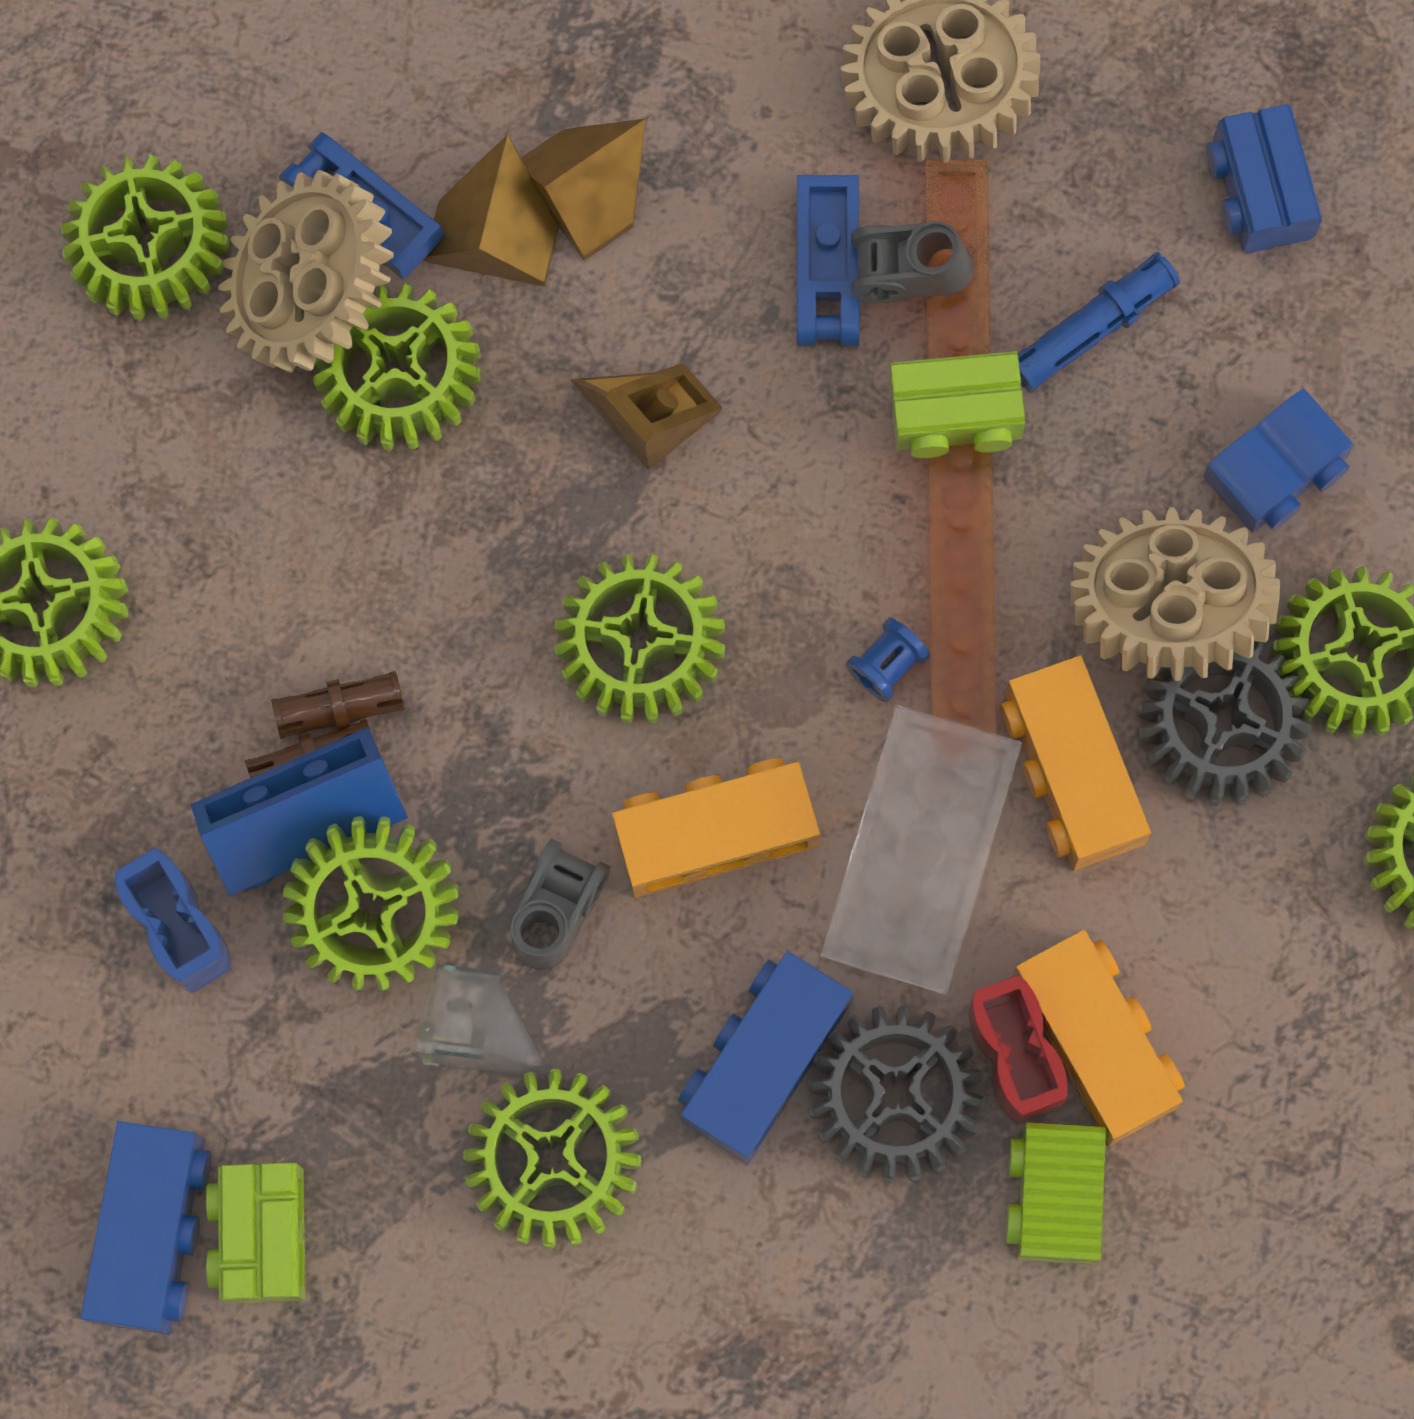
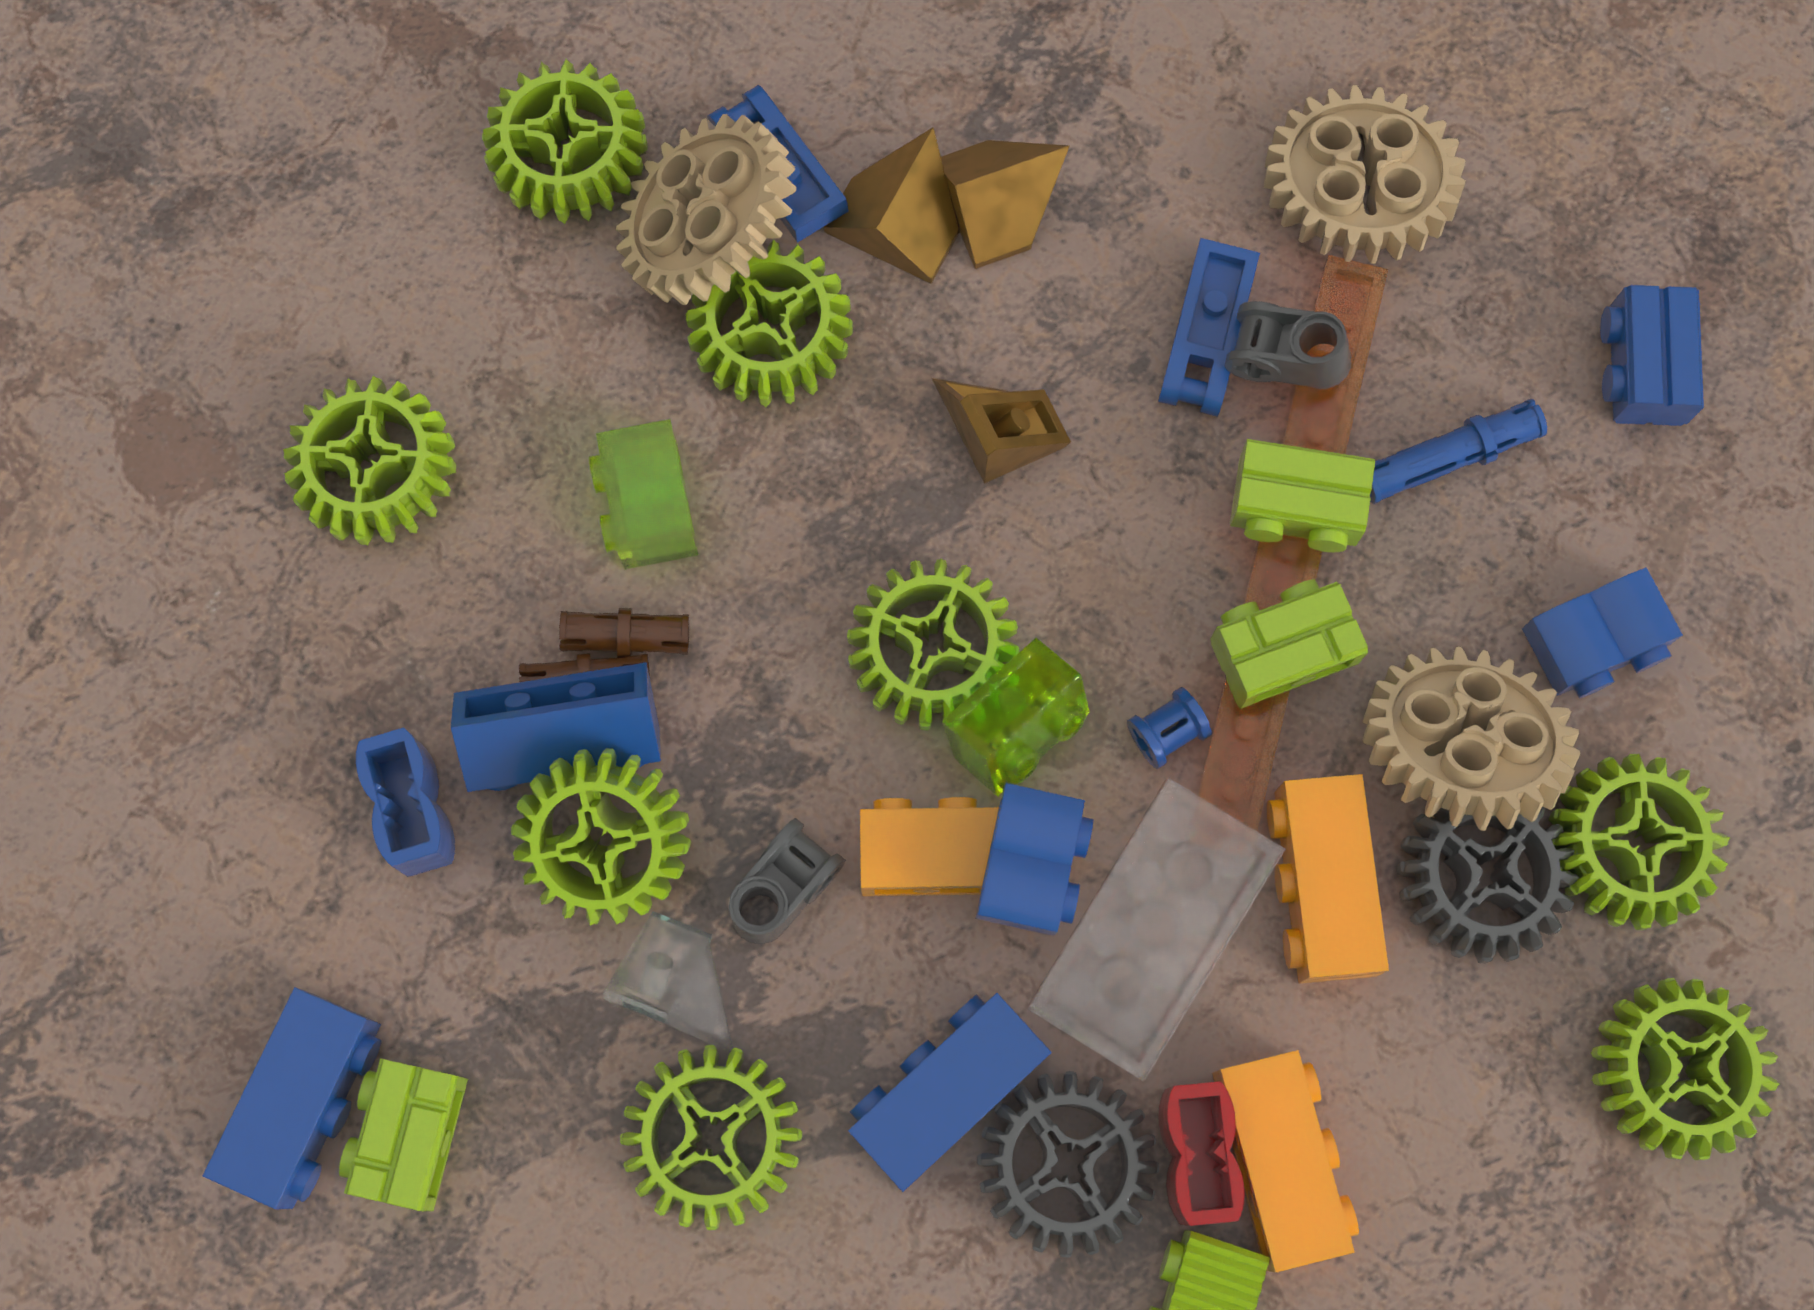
camera: 10 degrees right, 0 degrees up
(322, 565) = (644, 494): none -> clear neon green brick
(739, 687) = (1017, 717): none -> clear neon green brick
(788, 816) = (1032, 860): none -> blue brick
(978, 548) = (1287, 642): none -> lime brick

